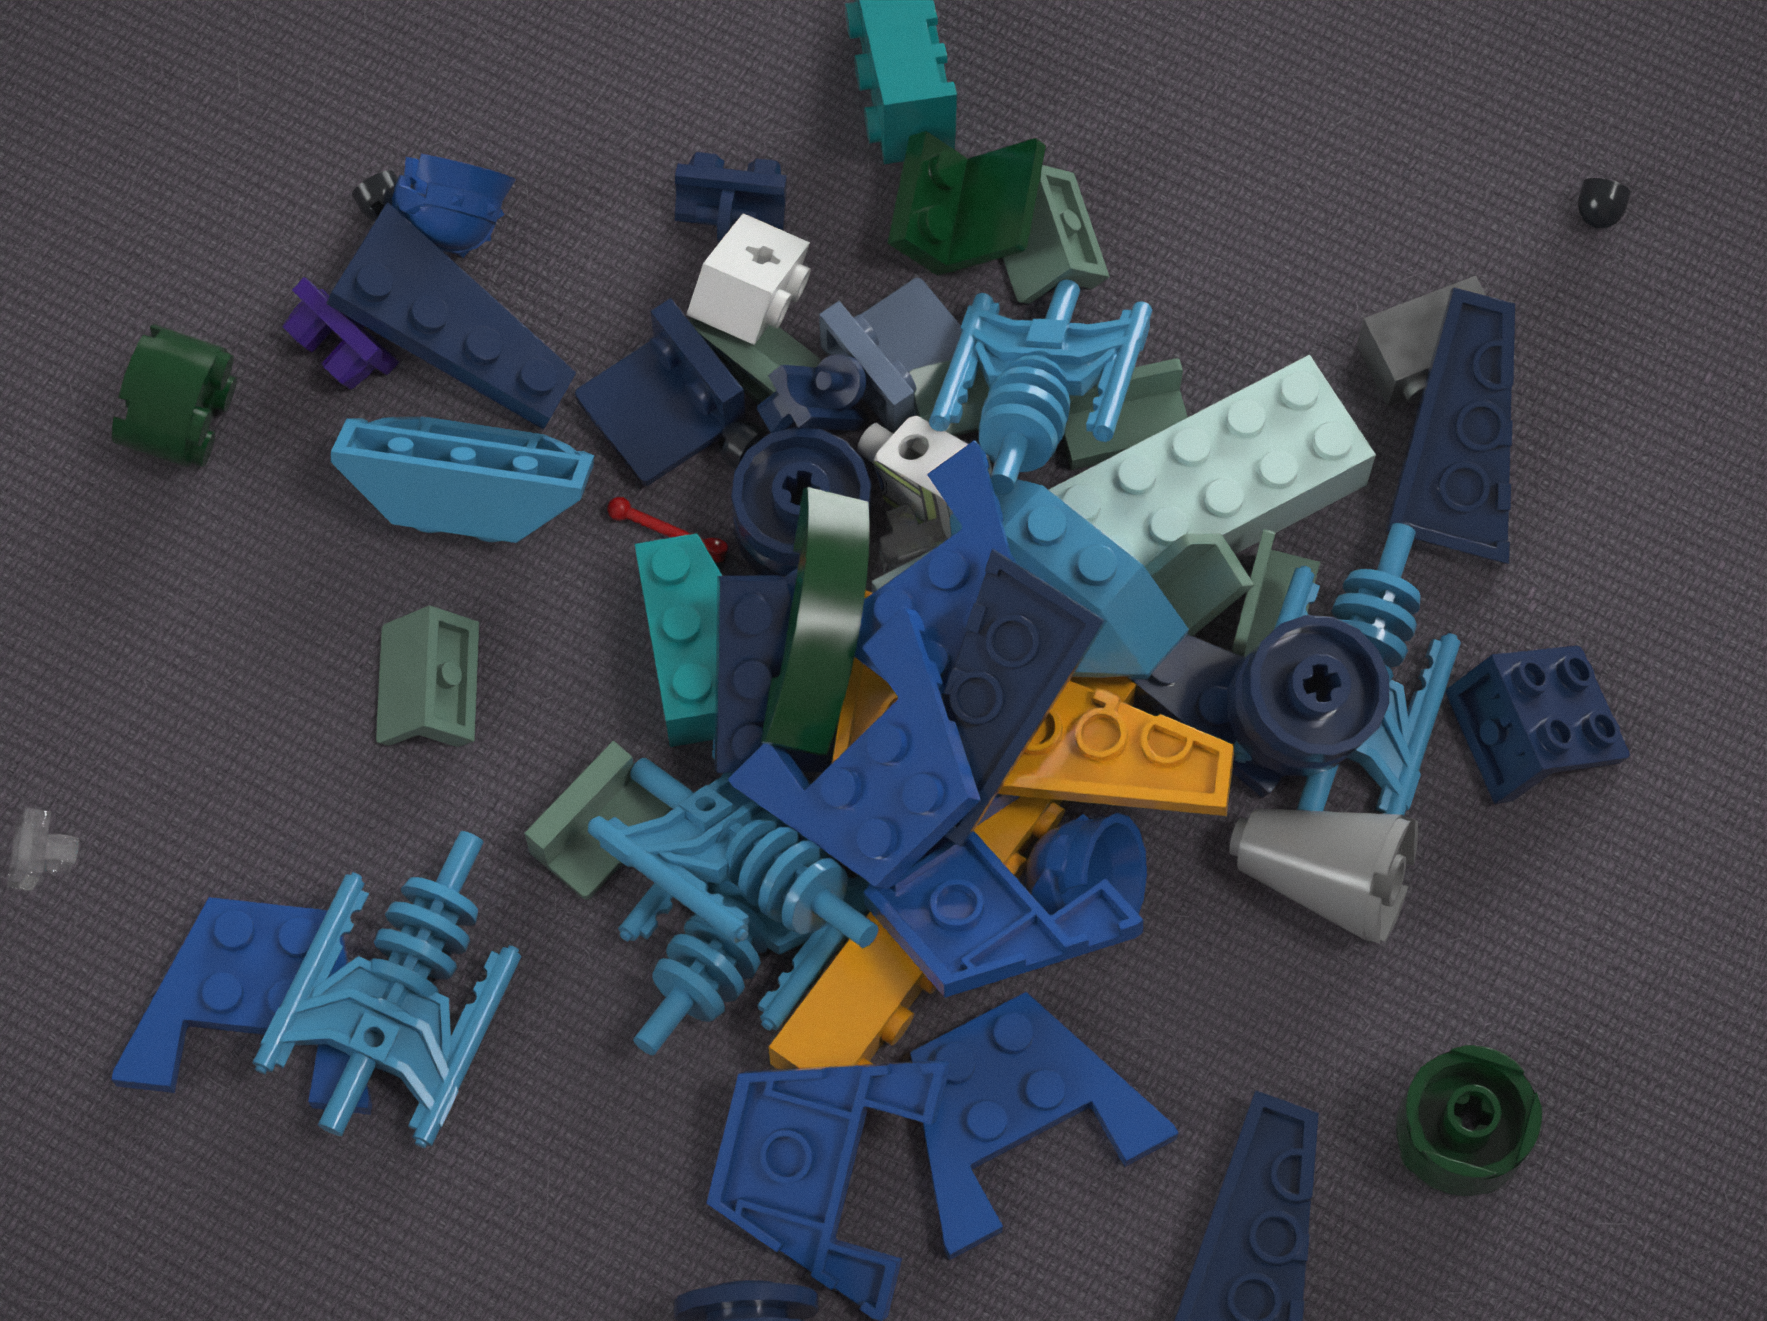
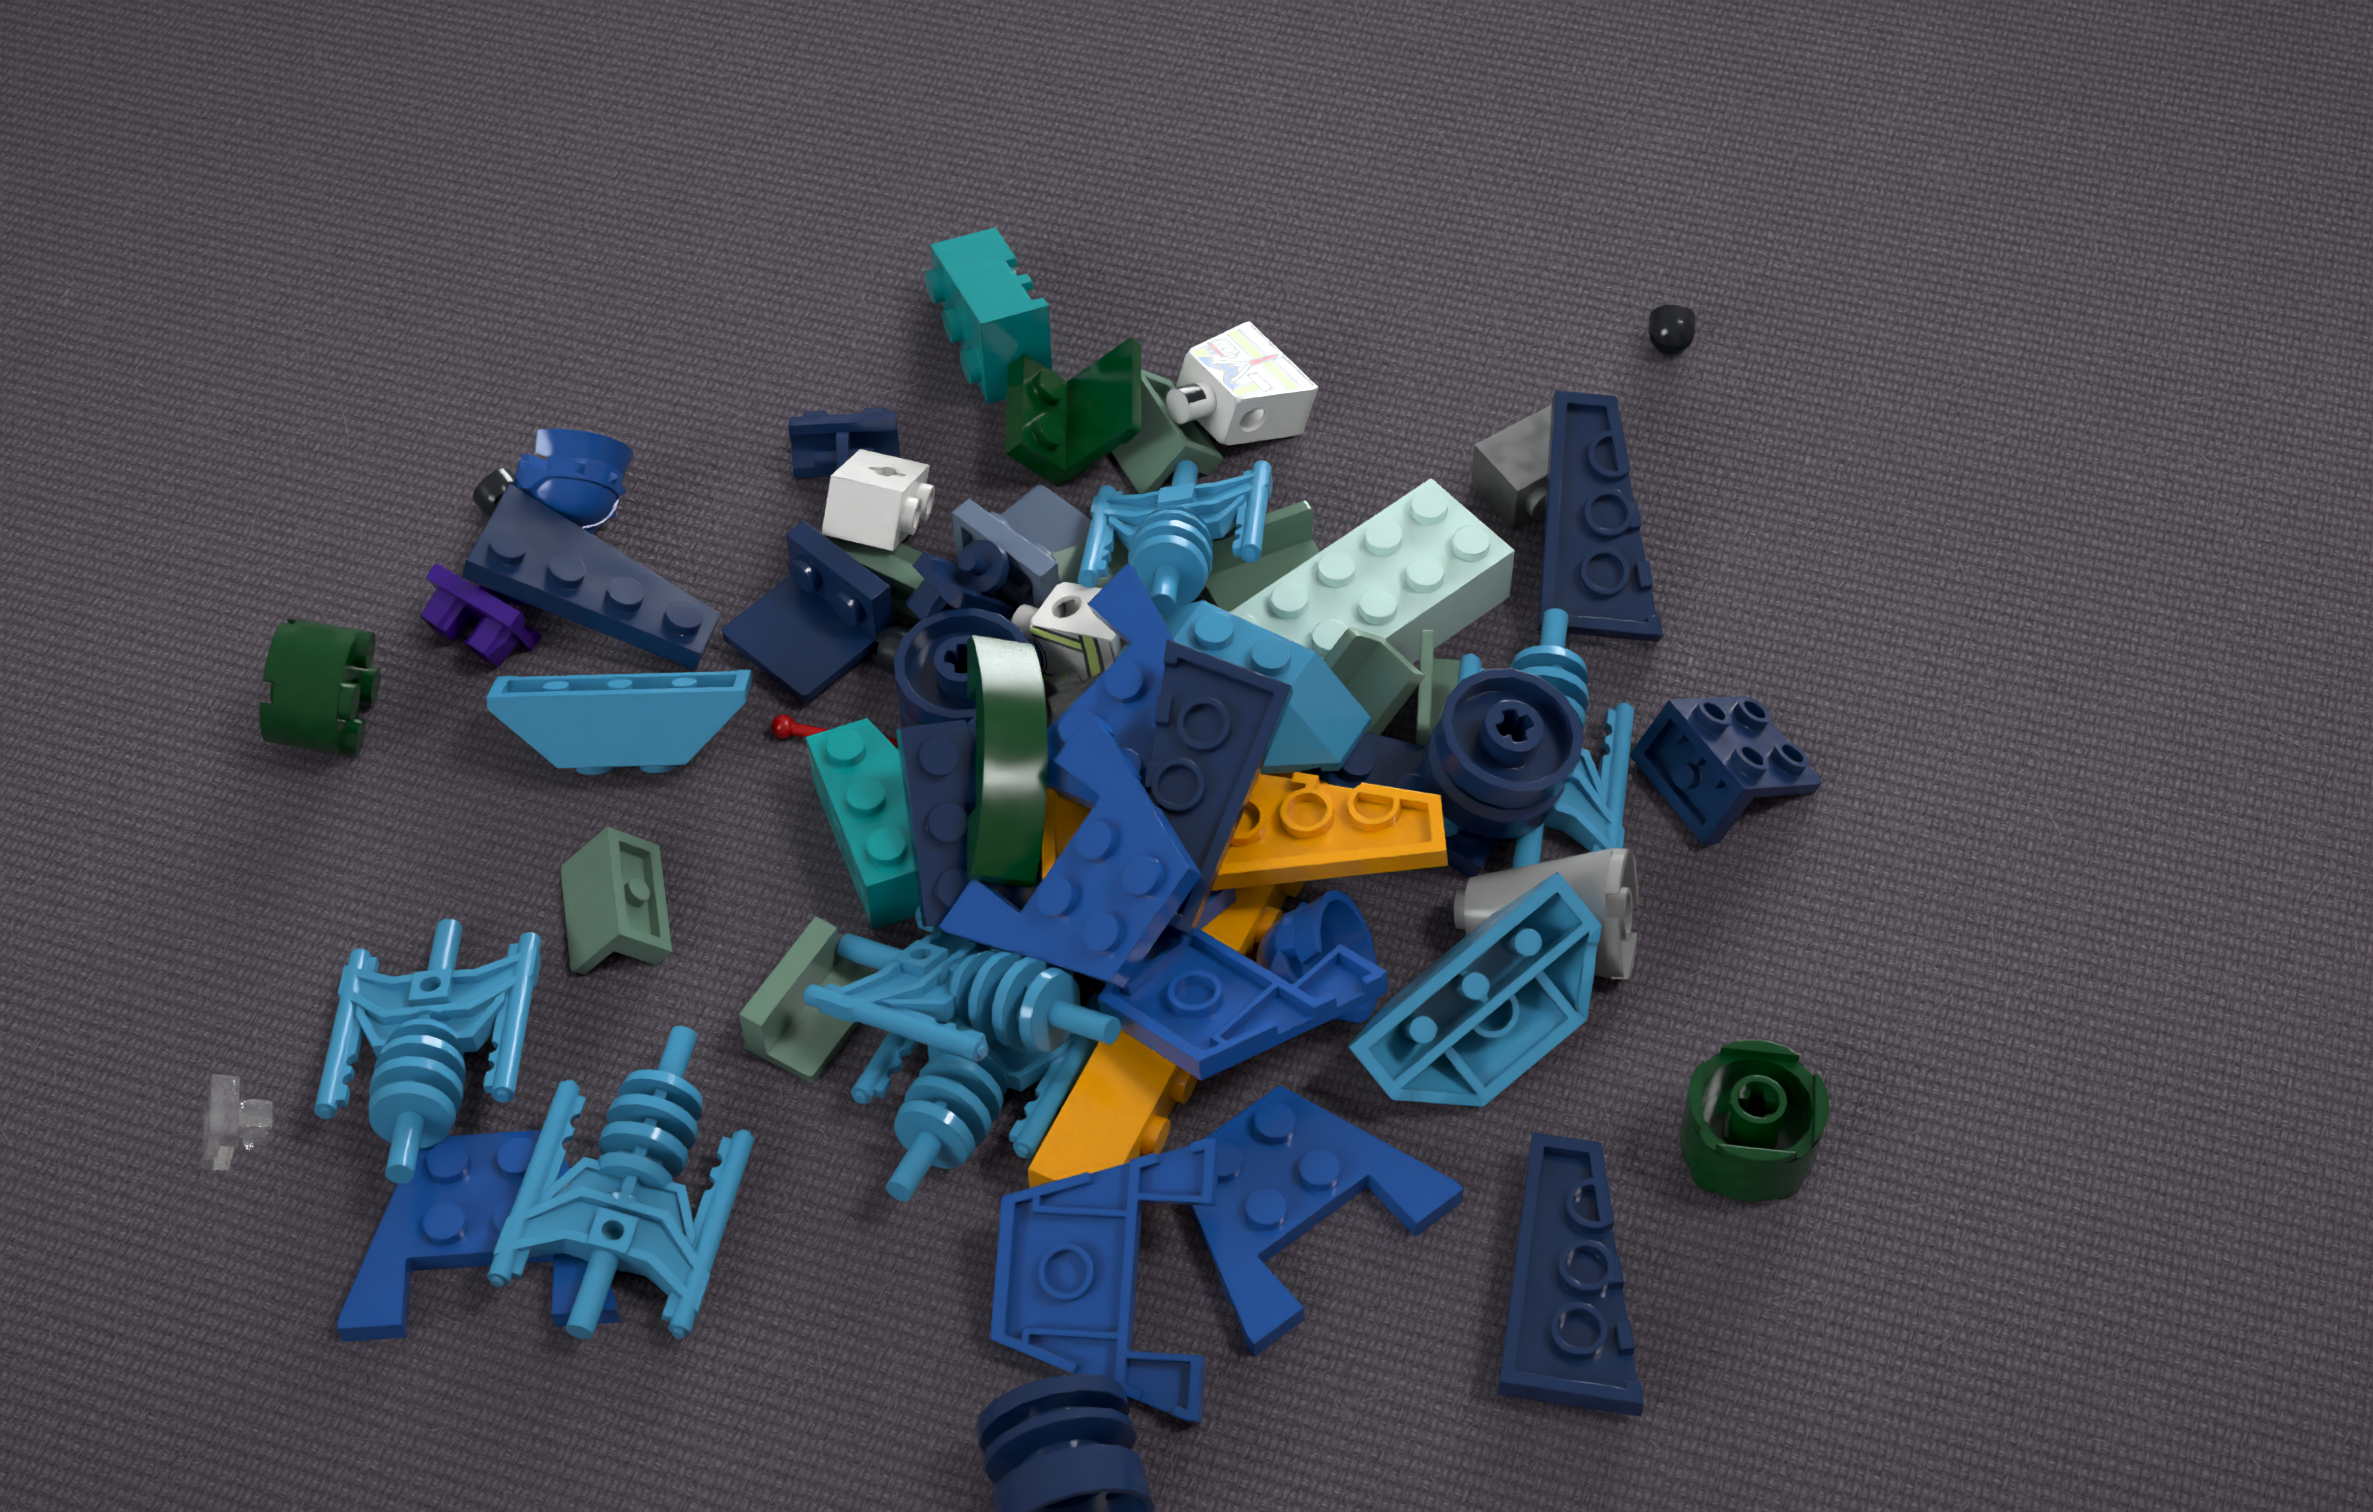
camera: 10 degrees left, 15 degrees down
(227, 786) = (419, 1038): none -> dark azure bar
(1141, 204) = (1242, 389): none -> white torso
(1236, 951) = (1488, 1003): none -> dark azure wedge

